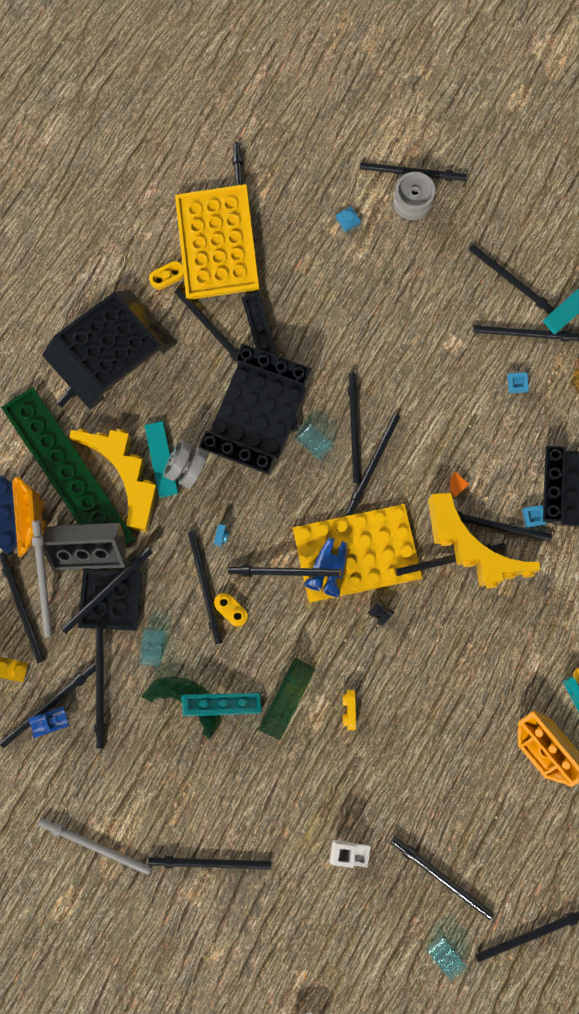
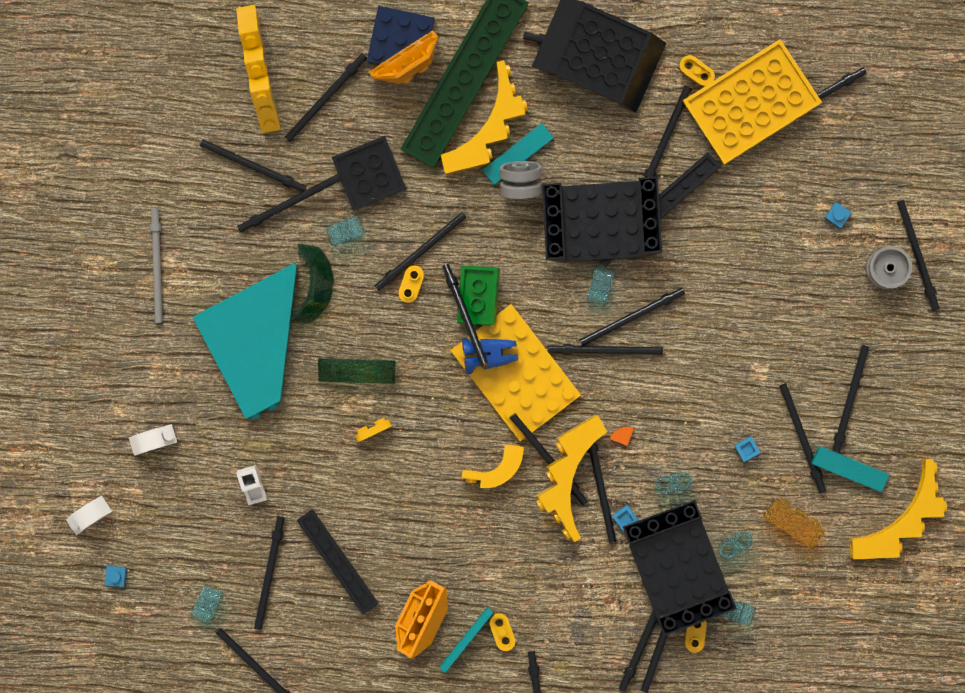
camera: 70 degrees right, 10 degrees up
(38, 542) = (386, 87): light grey bar -> none
(49, 722) = (239, 174): blue hips -> none
(85, 546) = (404, 127): dark grey slope -> none
(134, 564) = (410, 180): black bar -> none
(170, 861) = (174, 336): black bar -> none
(210, 787) = (251, 340): none -> teal slope
(221, 535) = (472, 244): dark azure plate -> none
(221, 704) = (324, 316): teal tile -> none
(260, 934) = (152, 439): none -> white brick
(268, 549) = (480, 293): none -> green plate
(381, 612) = (471, 418): black wheel -> none
(444, 606) = (509, 465): none -> yellow arch
(460, 804) = (337, 561): none -> black plate
(518, 458) = (673, 482): none -> clear light blue beam

